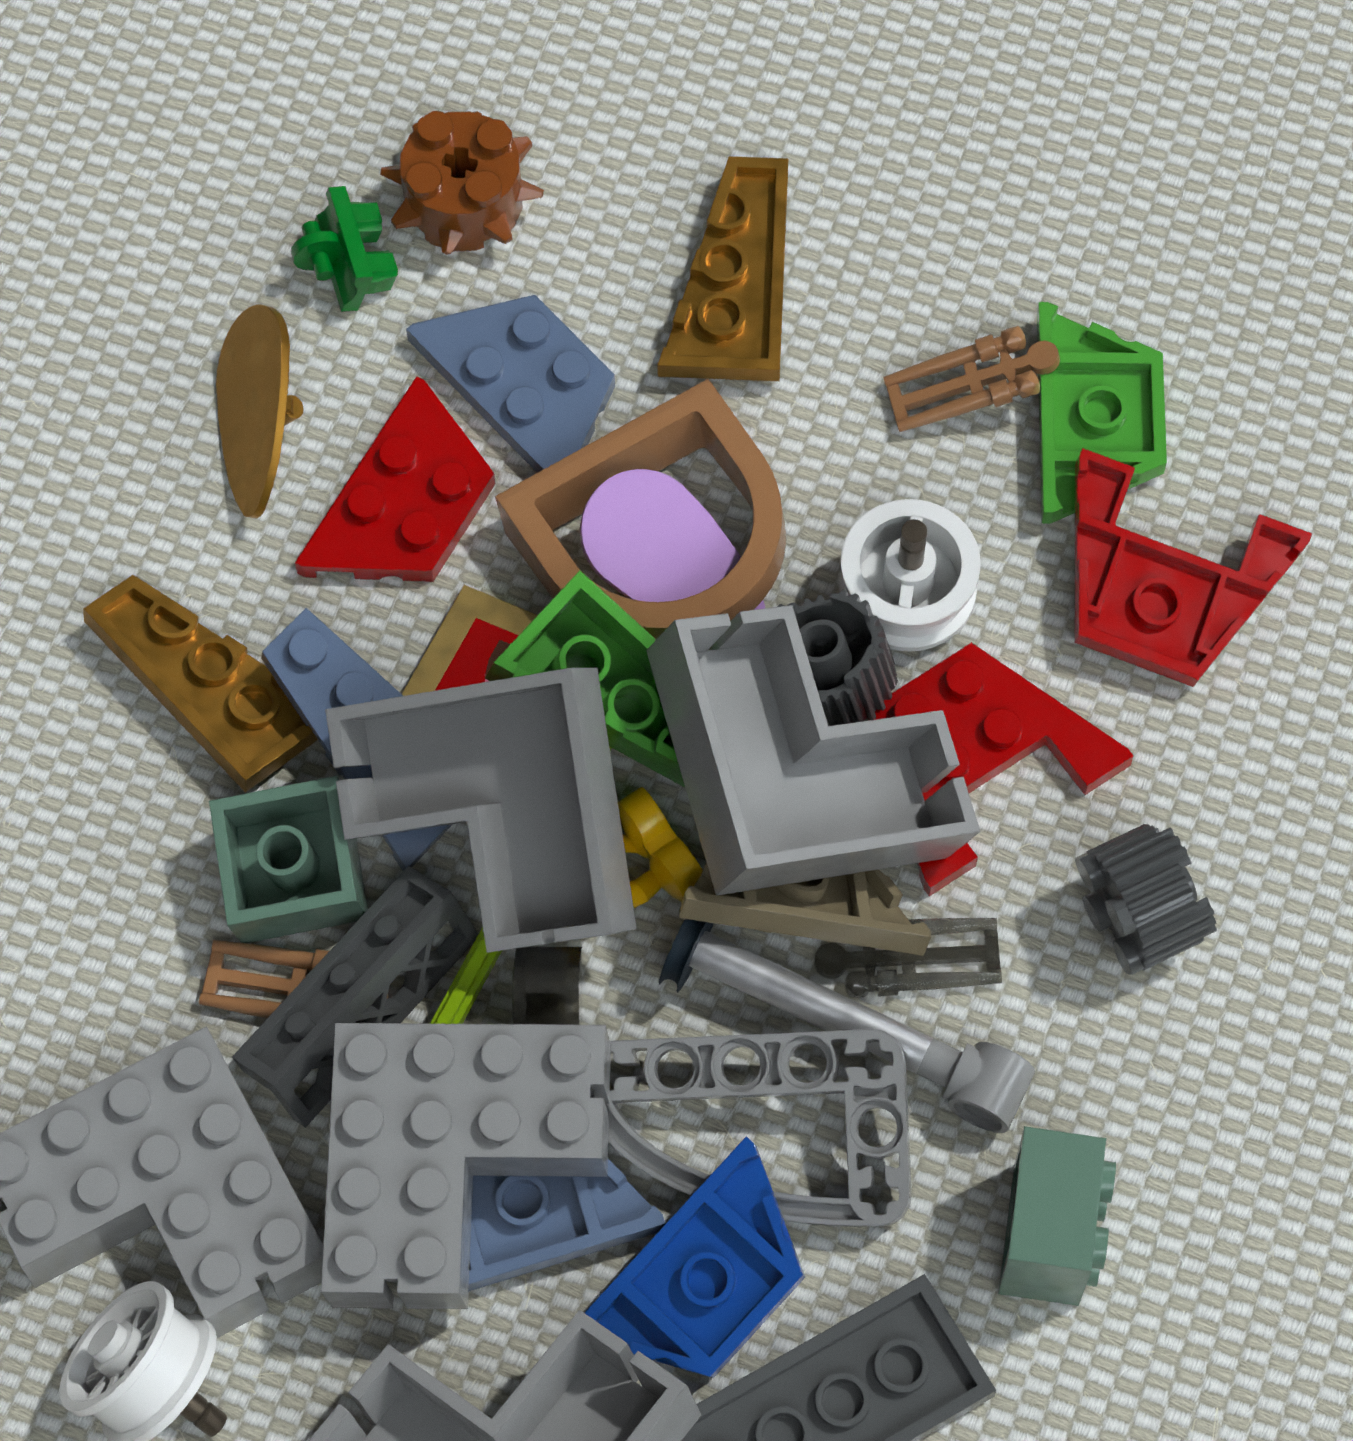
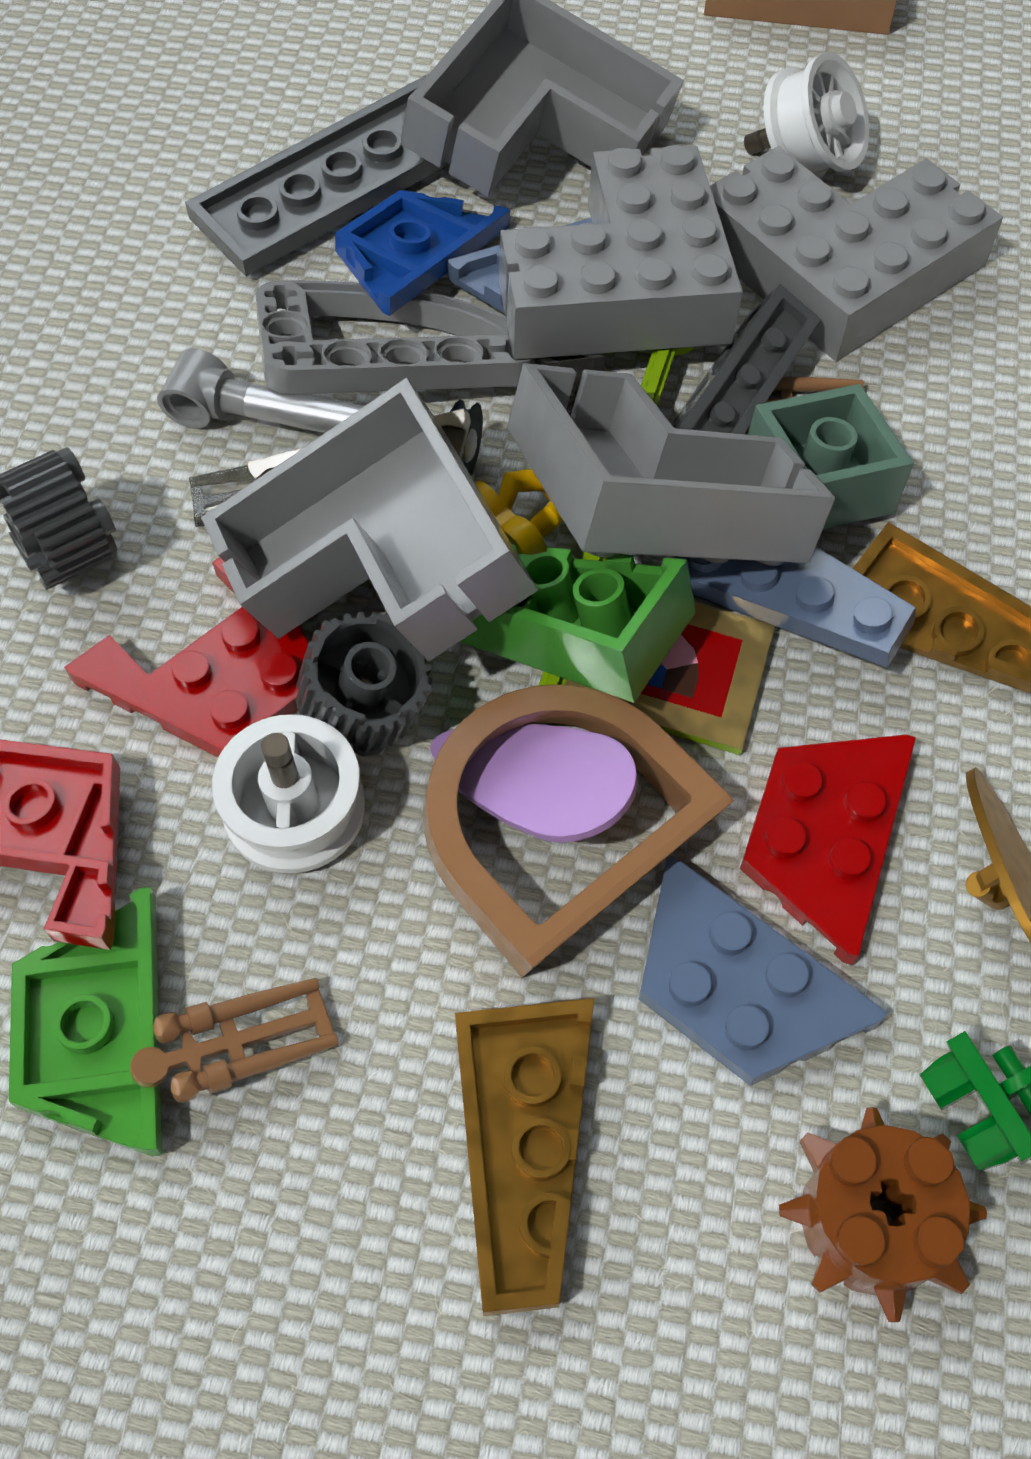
camera: 170 degrees right, 5 degrees down
(1053, 1216) = (136, 284): sand green brick -> none

